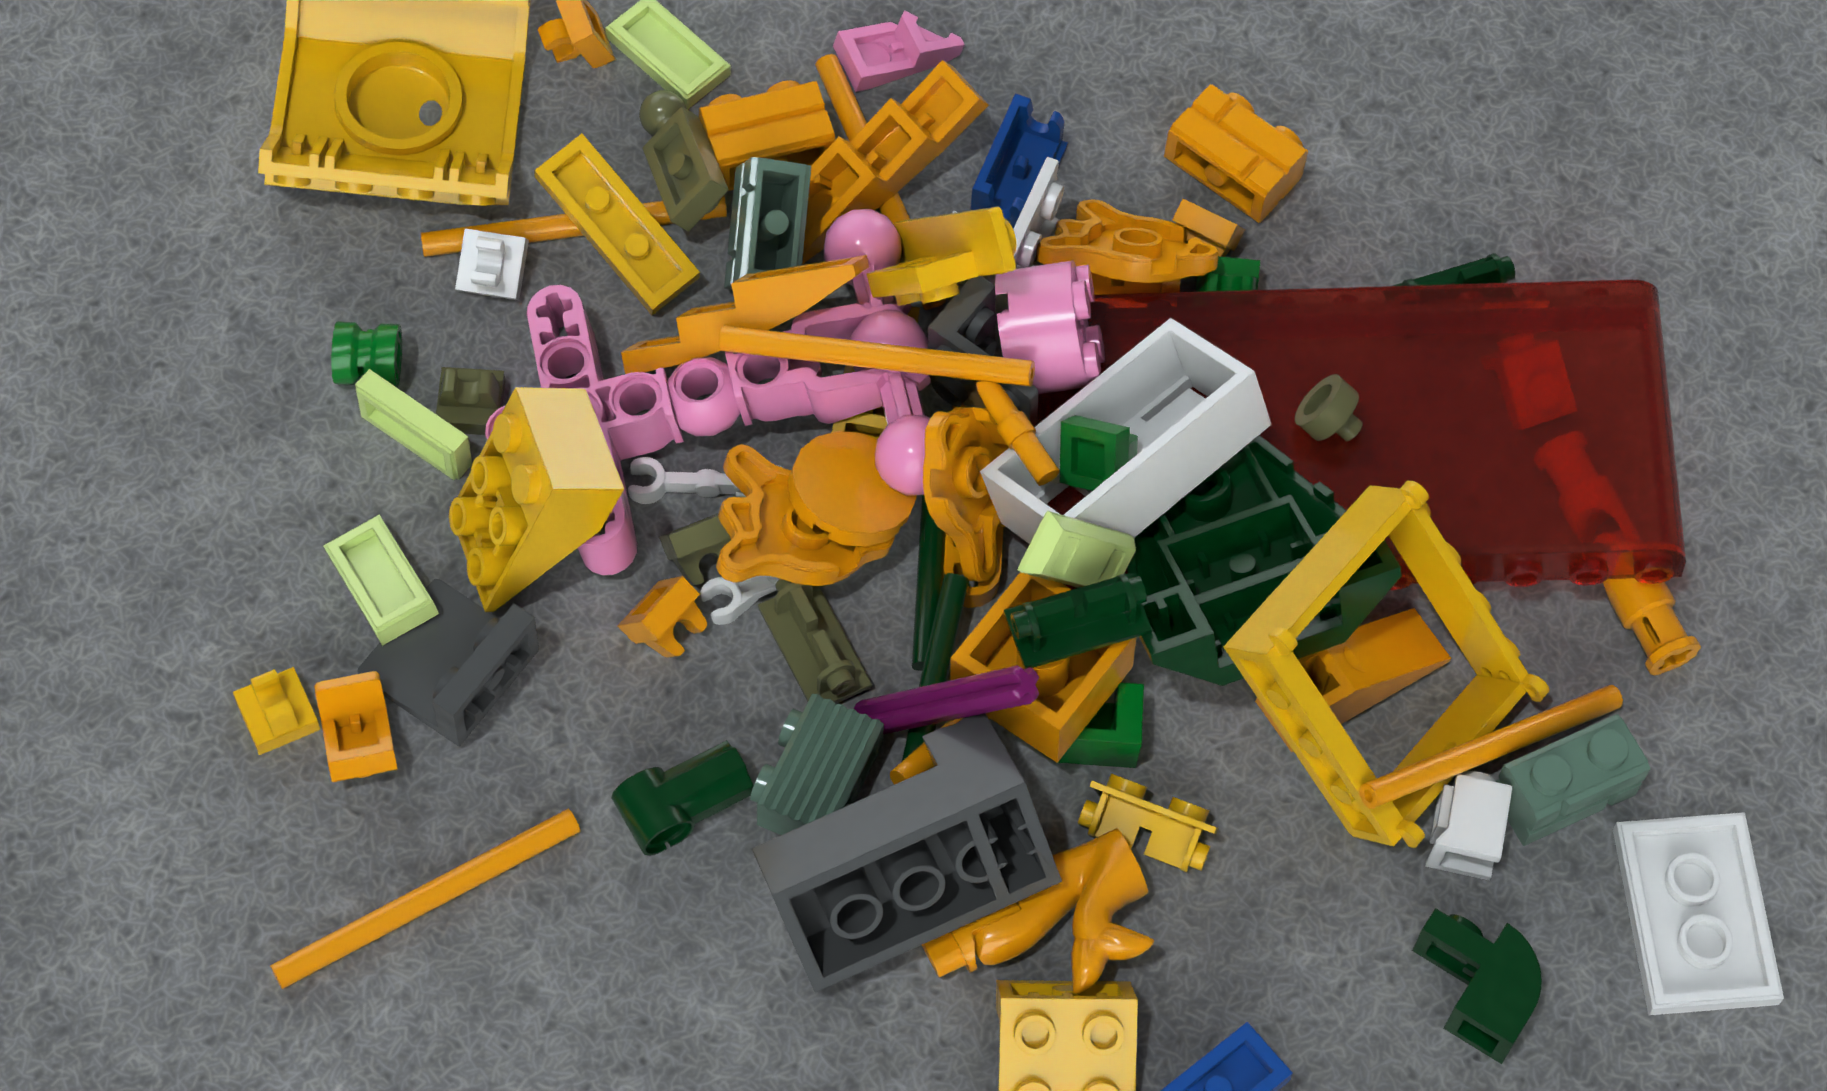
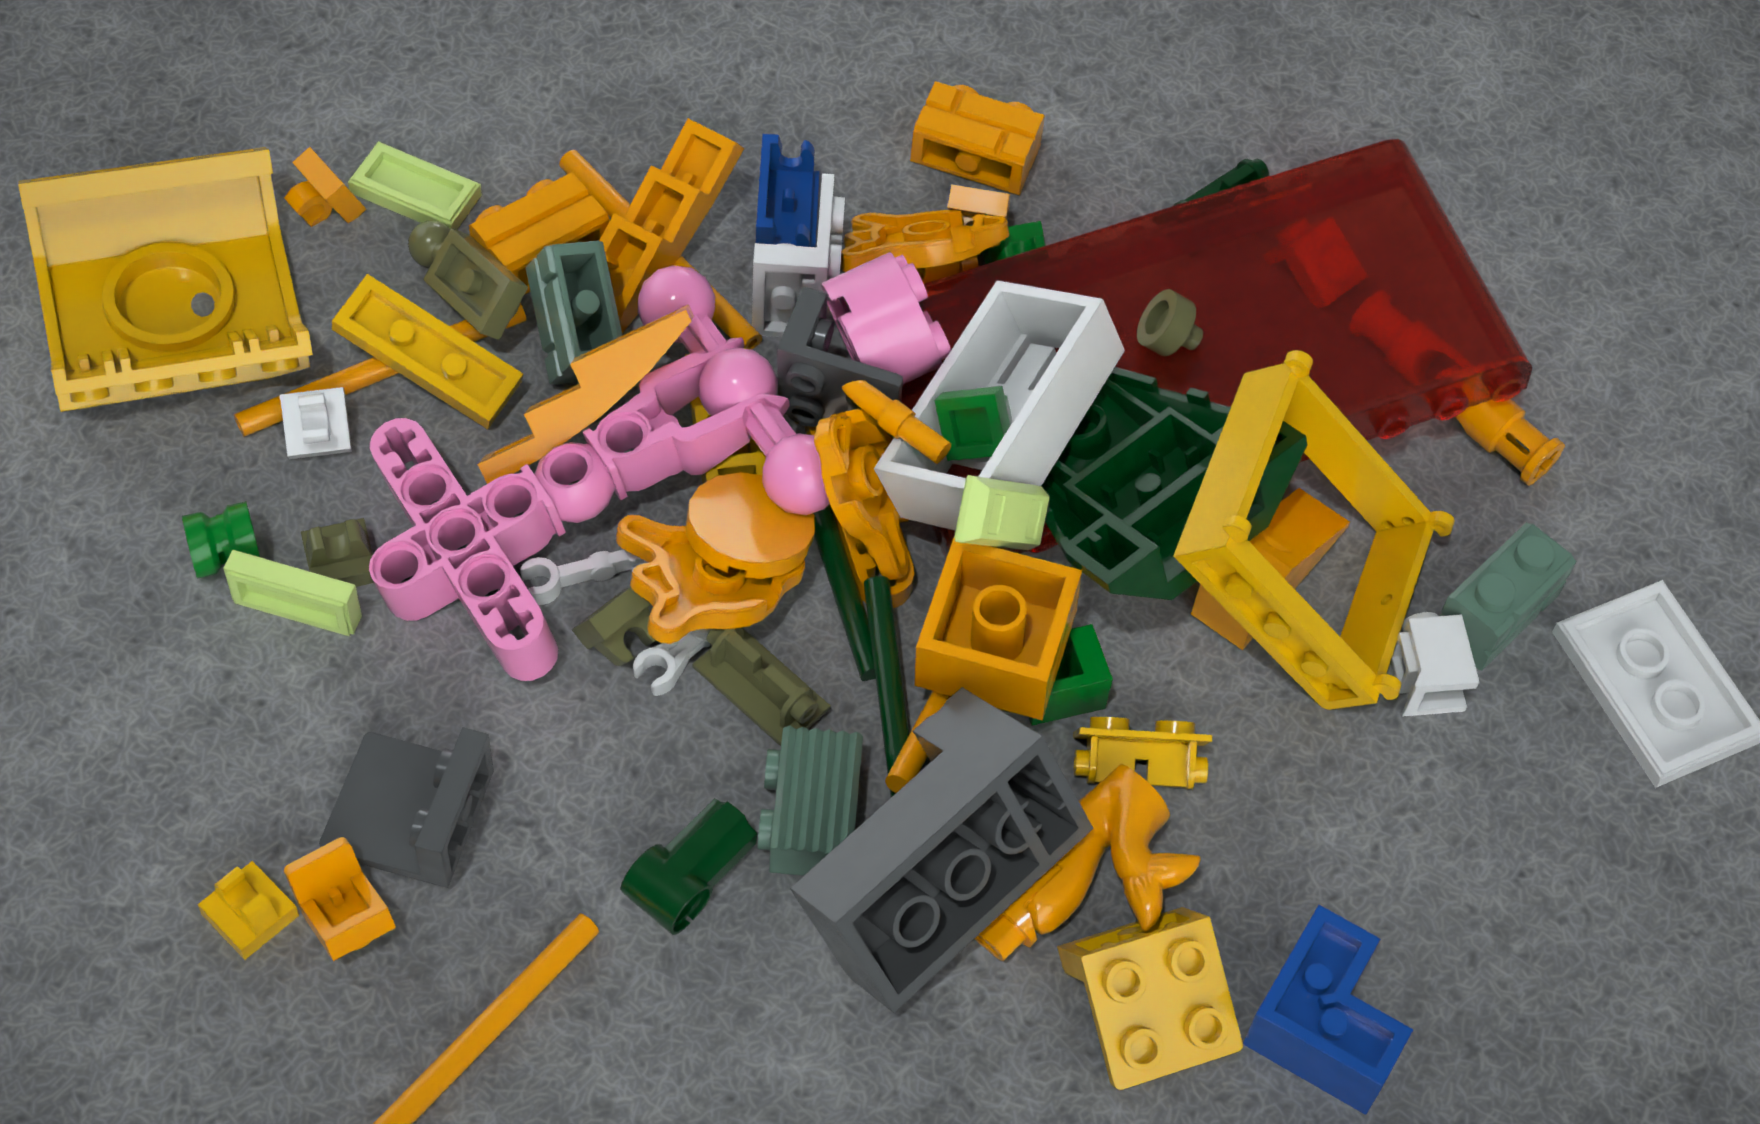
camera: 20 degrees left, 5 degrees down
(381, 580) = (312, 750): yellowish green tile -> none
(534, 491) = (444, 615): yellow slope -> none
(659, 611) = (601, 697): light orange tile -> none
(877, 355) = (736, 389): light orange piece -> none
(892, 51) = (626, 135): bright pink slope -> none
(944, 252) = (762, 279): yellow bracket -> none
(953, 699) = (931, 685): magenta axle -> none
(1079, 620) = (1027, 572): dark green hinge -> none
(1490, 746) = (1424, 588): light orange piece -> none
(1499, 975) = (1520, 794): dark green brick -> none

